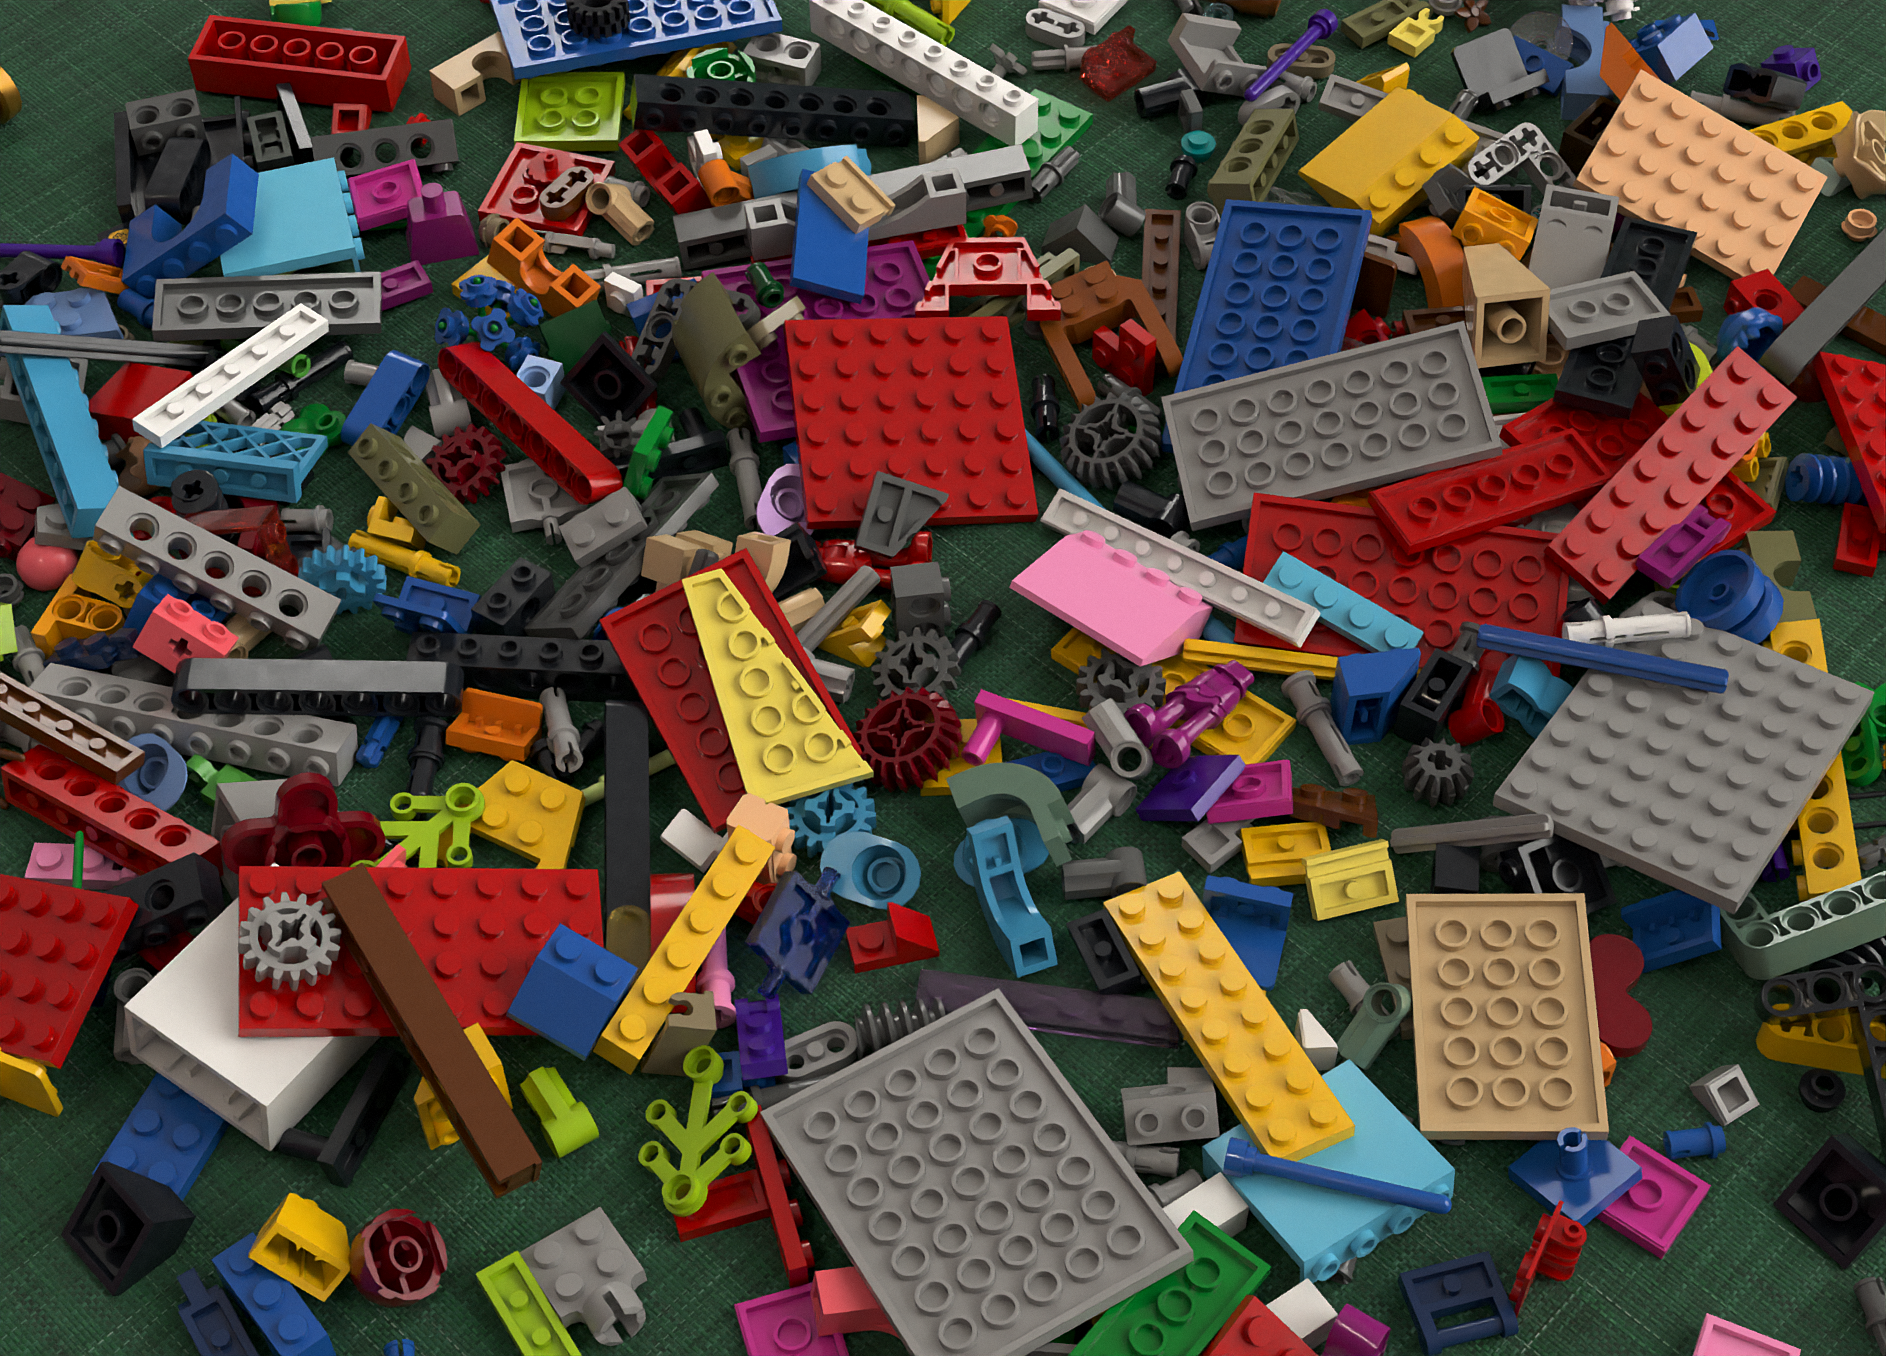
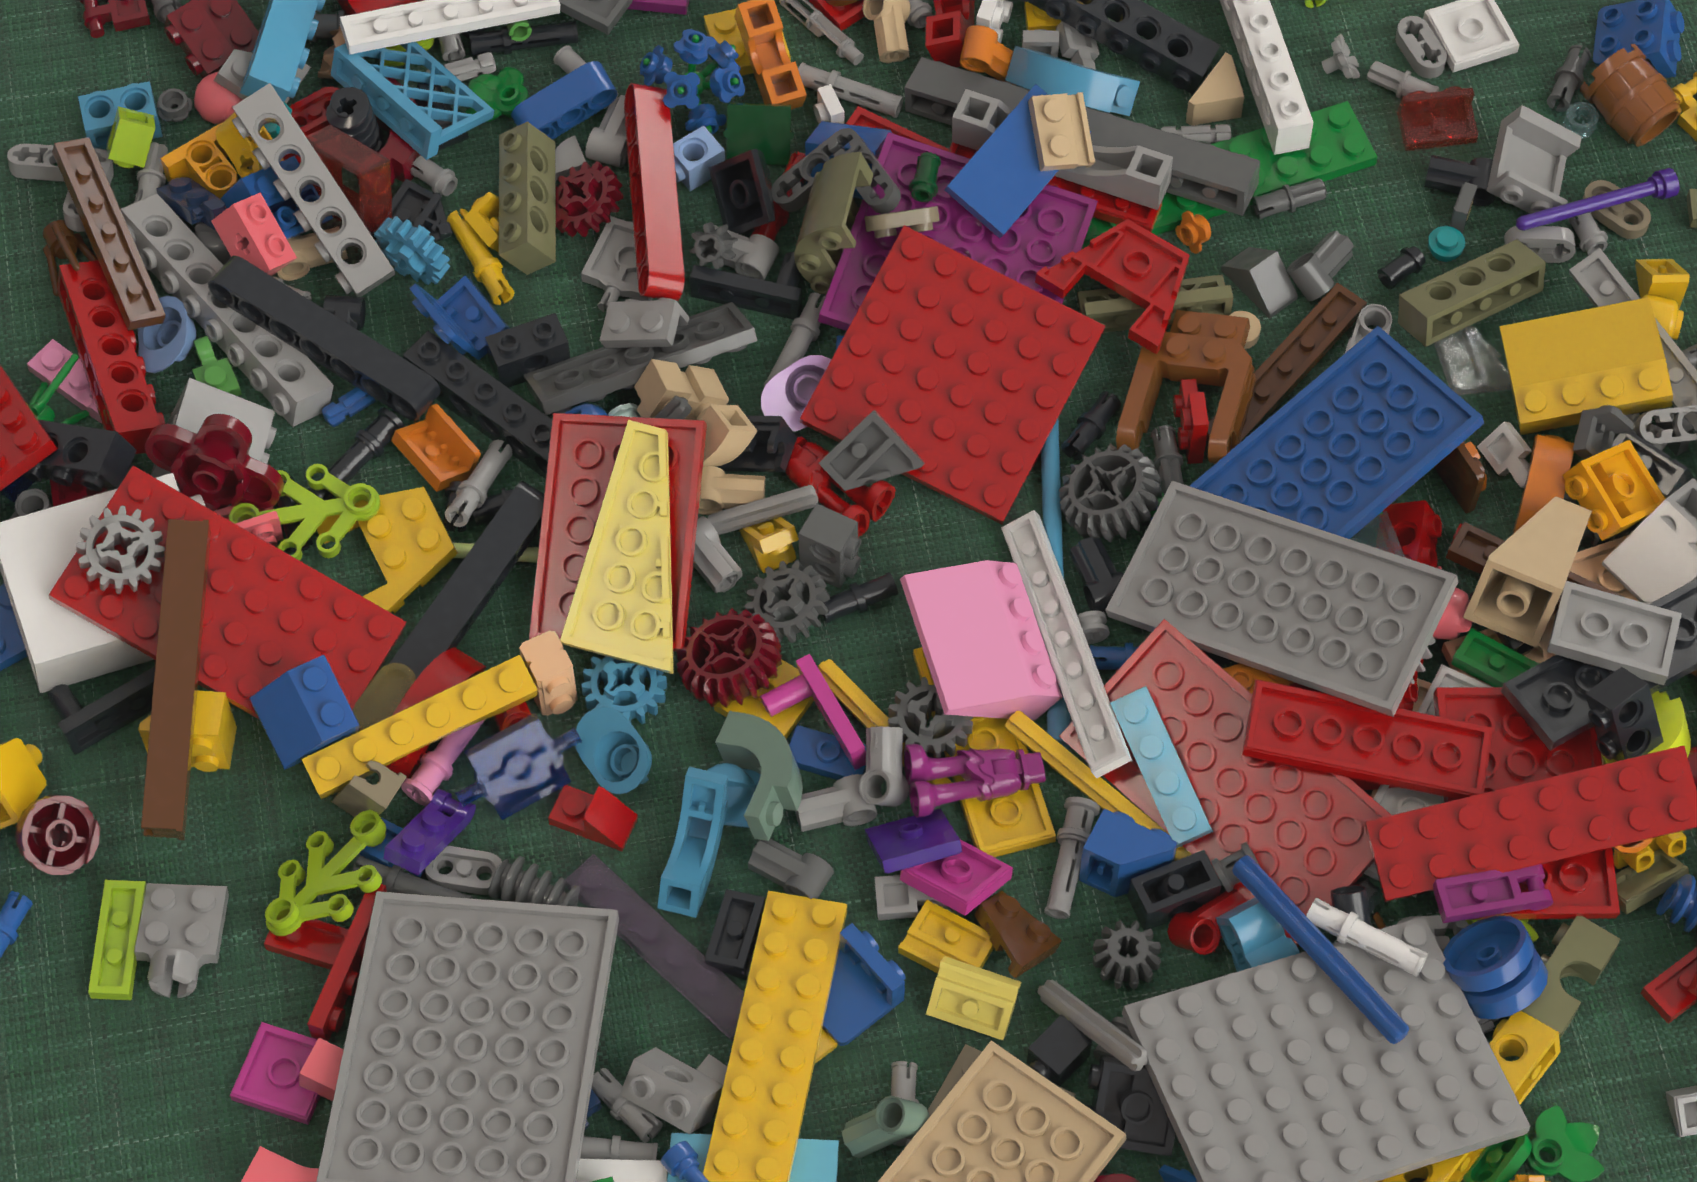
camera: 35 degrees right, 10 degrees up
(562, 1119) = (251, 803): lime piece -> none
(647, 453) = (711, 281): green plate -> none
(693, 840) = (508, 633): white bracket -> none
(1315, 1041) = (828, 1108): white slope -> none

